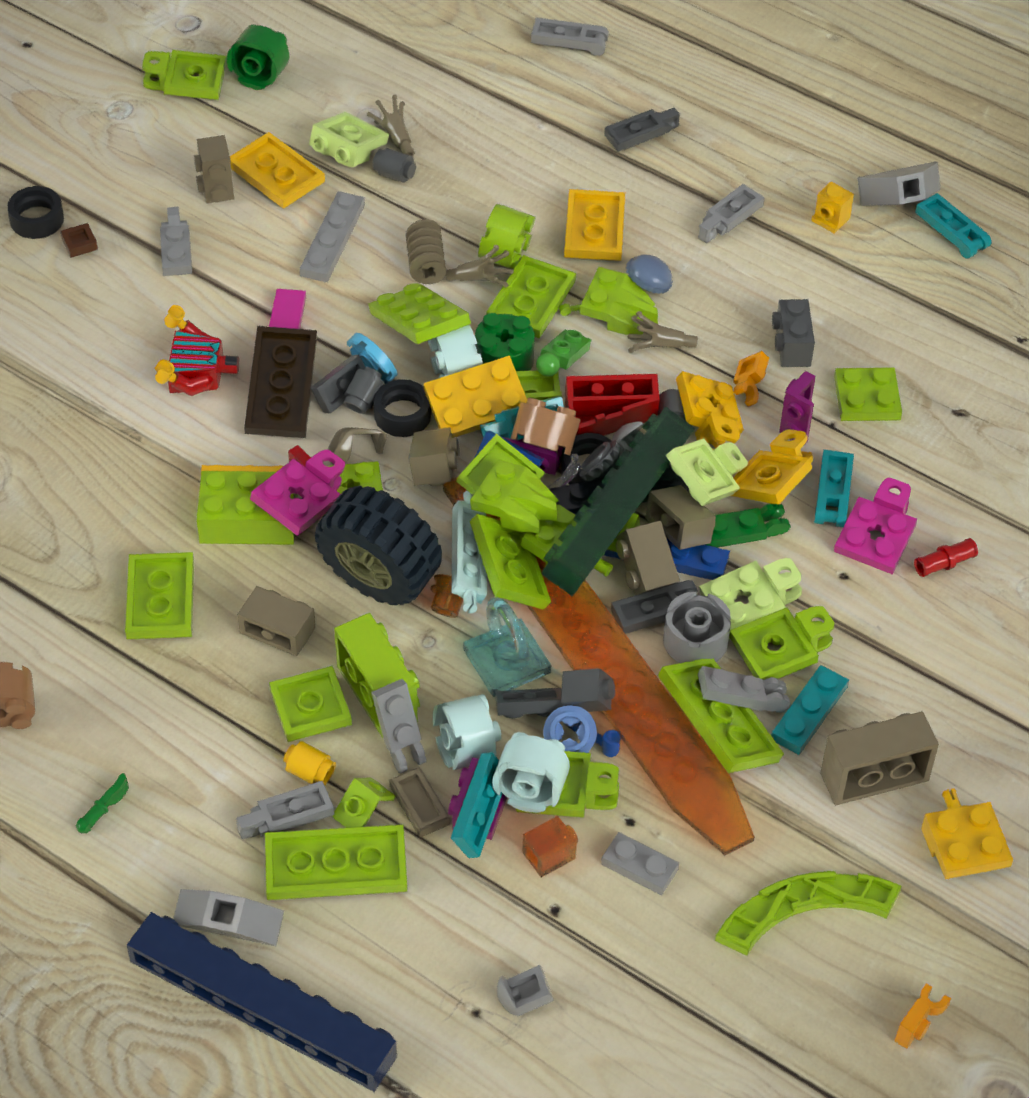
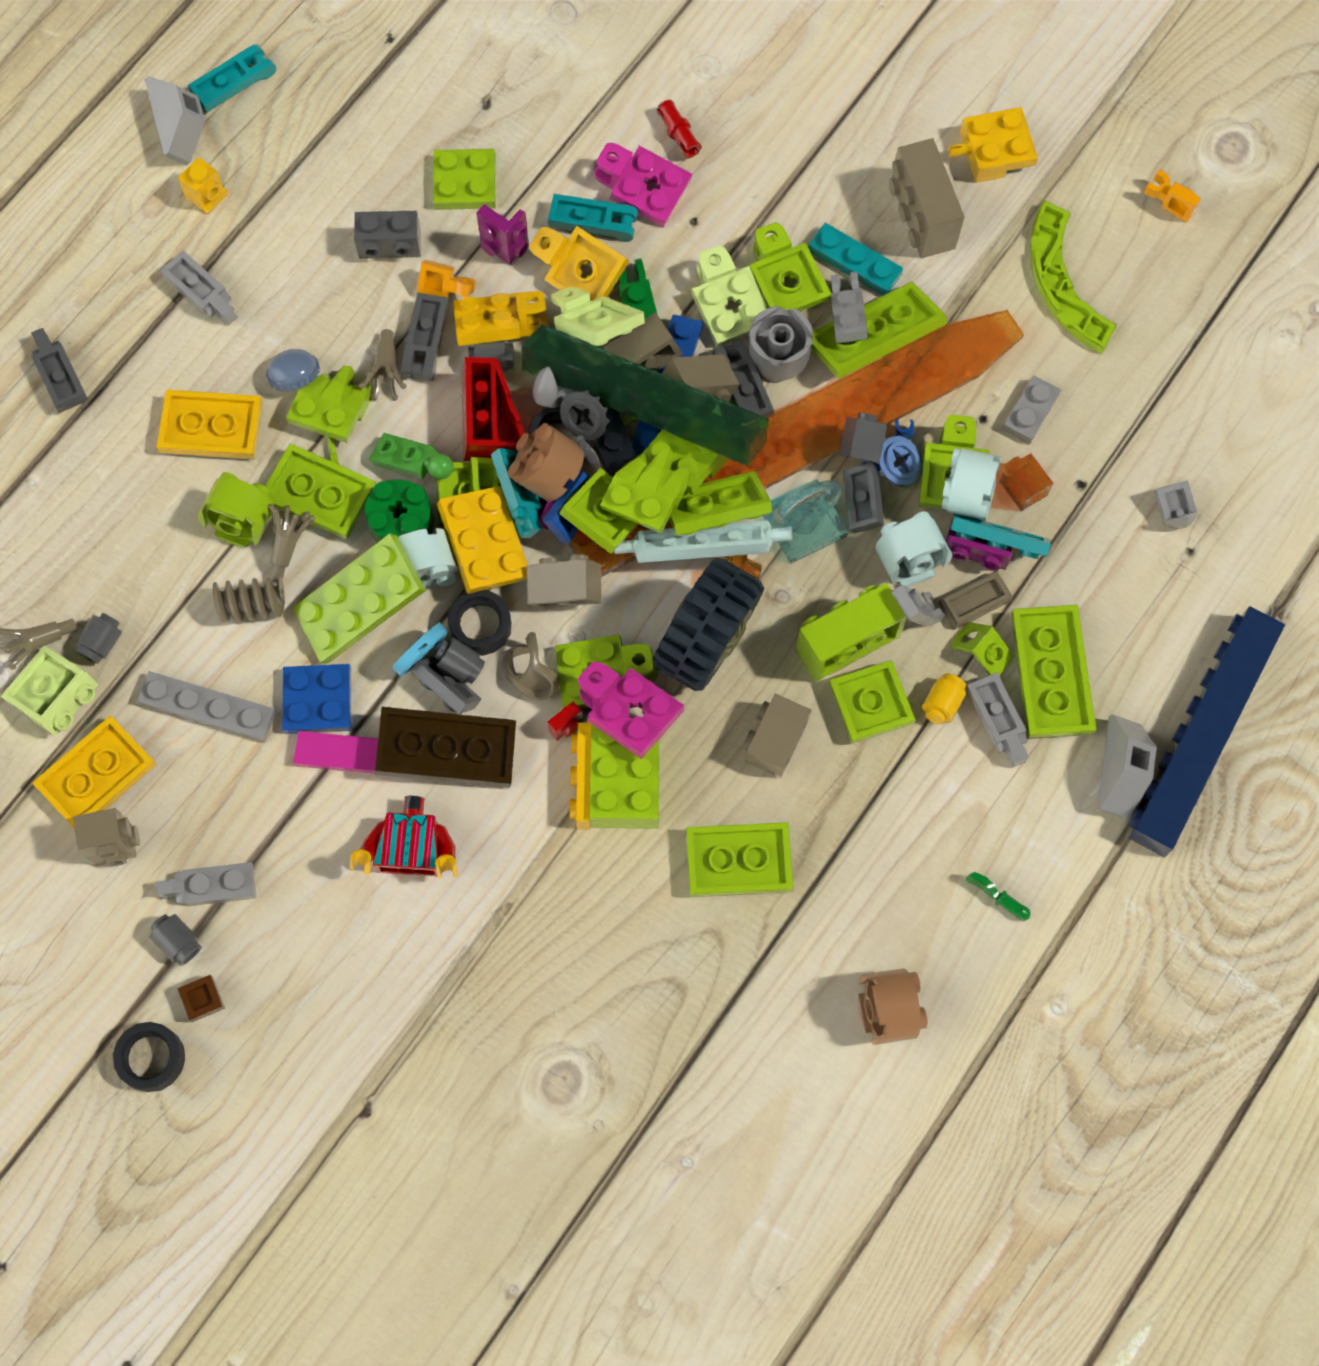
camera: 90 degrees left, 20 degrees up
(129, 222) = (175, 939): none -> dark grey brick
(336, 305) = (317, 698): none -> blue plate
(702, 363) = (424, 336): none -> dark grey plate

